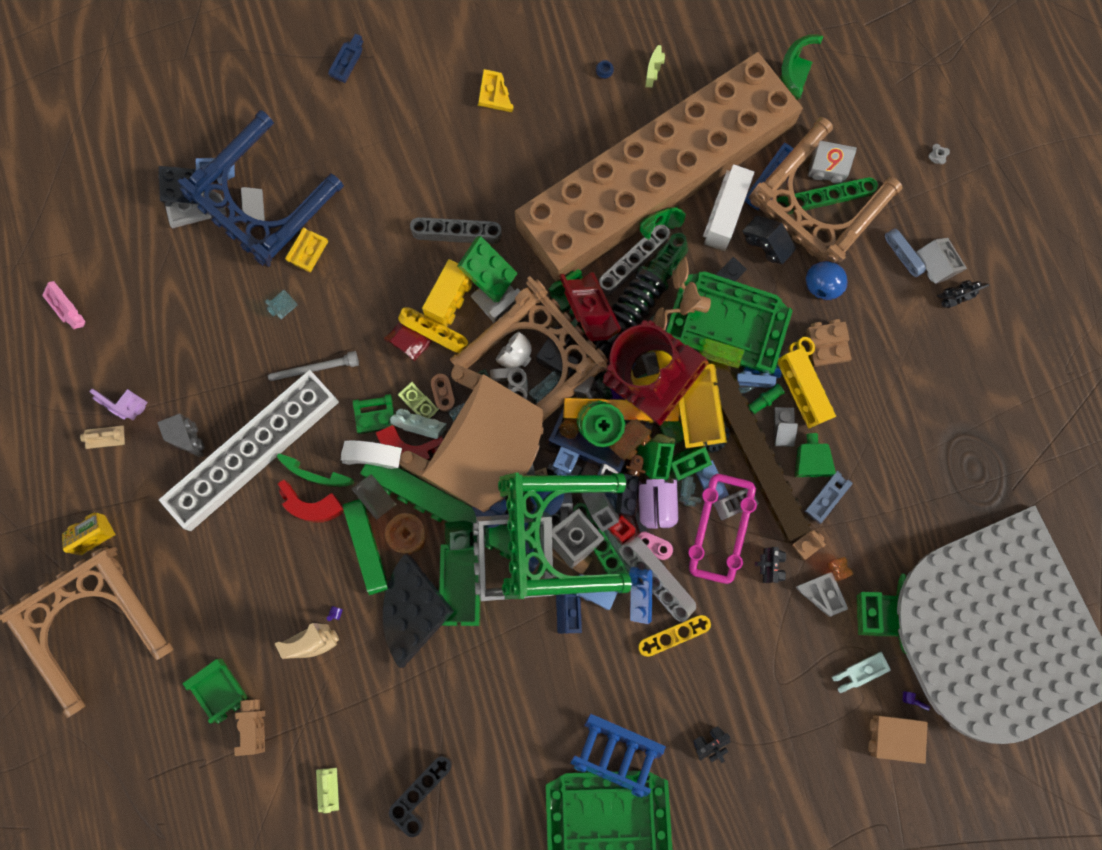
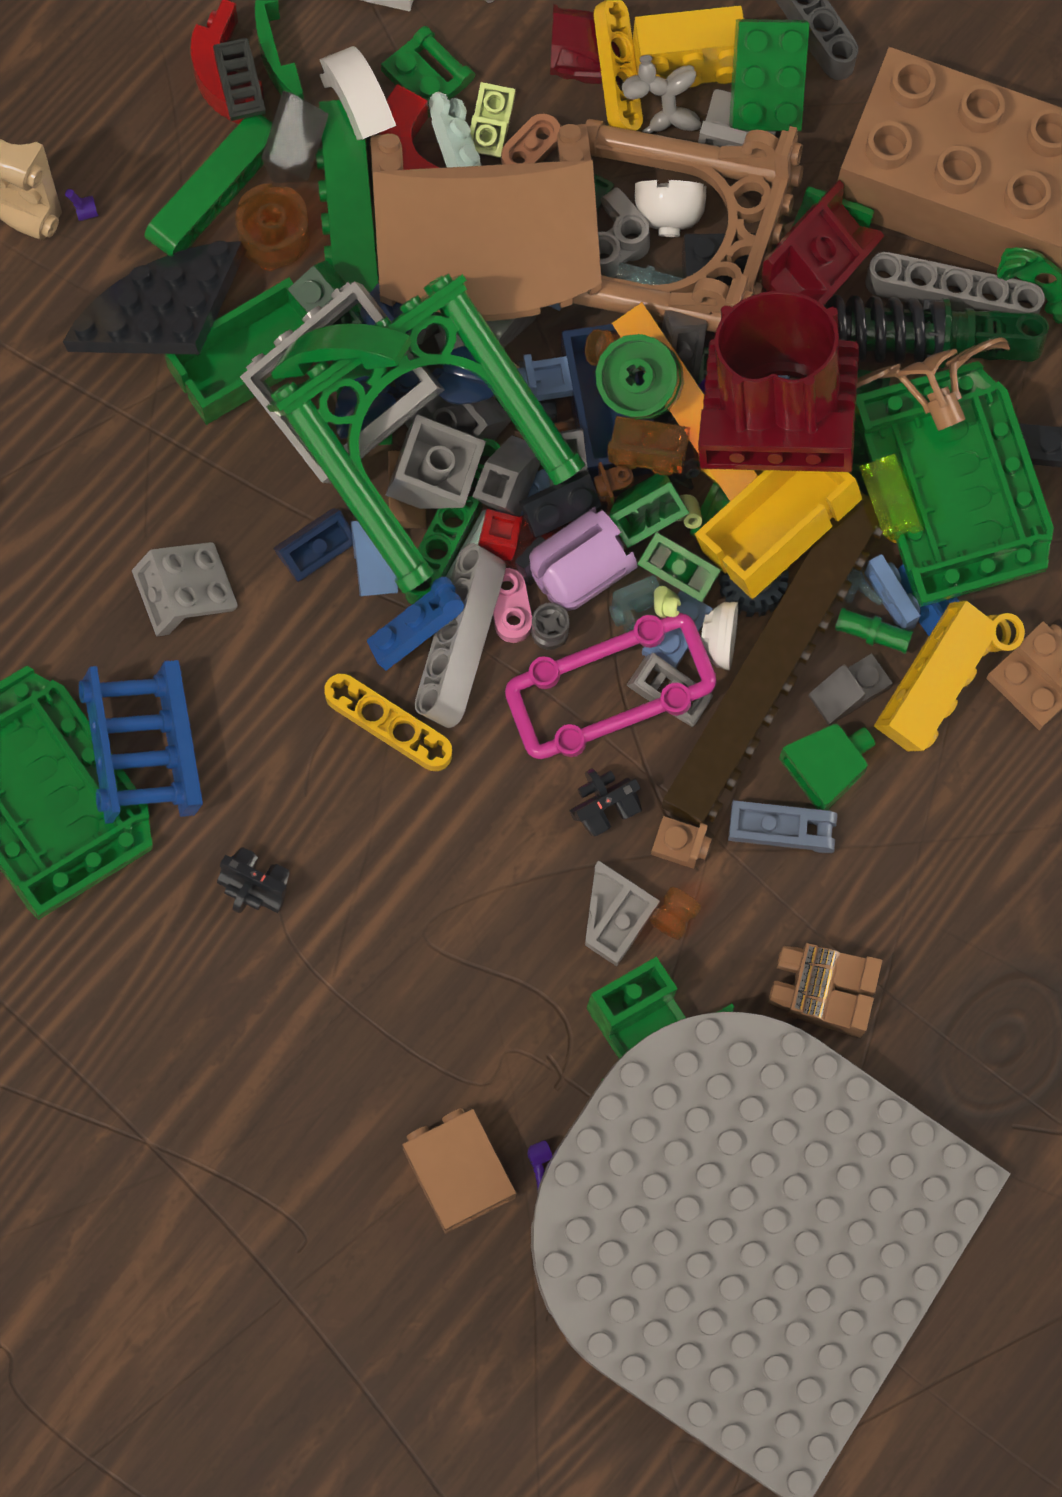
camera: 55 degrees right, 5 degrees down
(310, 496) = (232, 57): none -> pearl dark grey slope
(462, 309) = (676, 83): none -> light grey piece
(511, 548) = (372, 344): none -> green slope
(552, 686) = (182, 585): none -> light grey bracket
(679, 533) = (551, 618): none -> flat silver wheel
(703, 481) = (666, 602): none -> yellowish green arm
(729, 465) = (720, 634): none -> white piece
(863, 671) = (531, 1051): light aqua hinge -> none
(907, 532) = (827, 988): none -> medium nougat hips

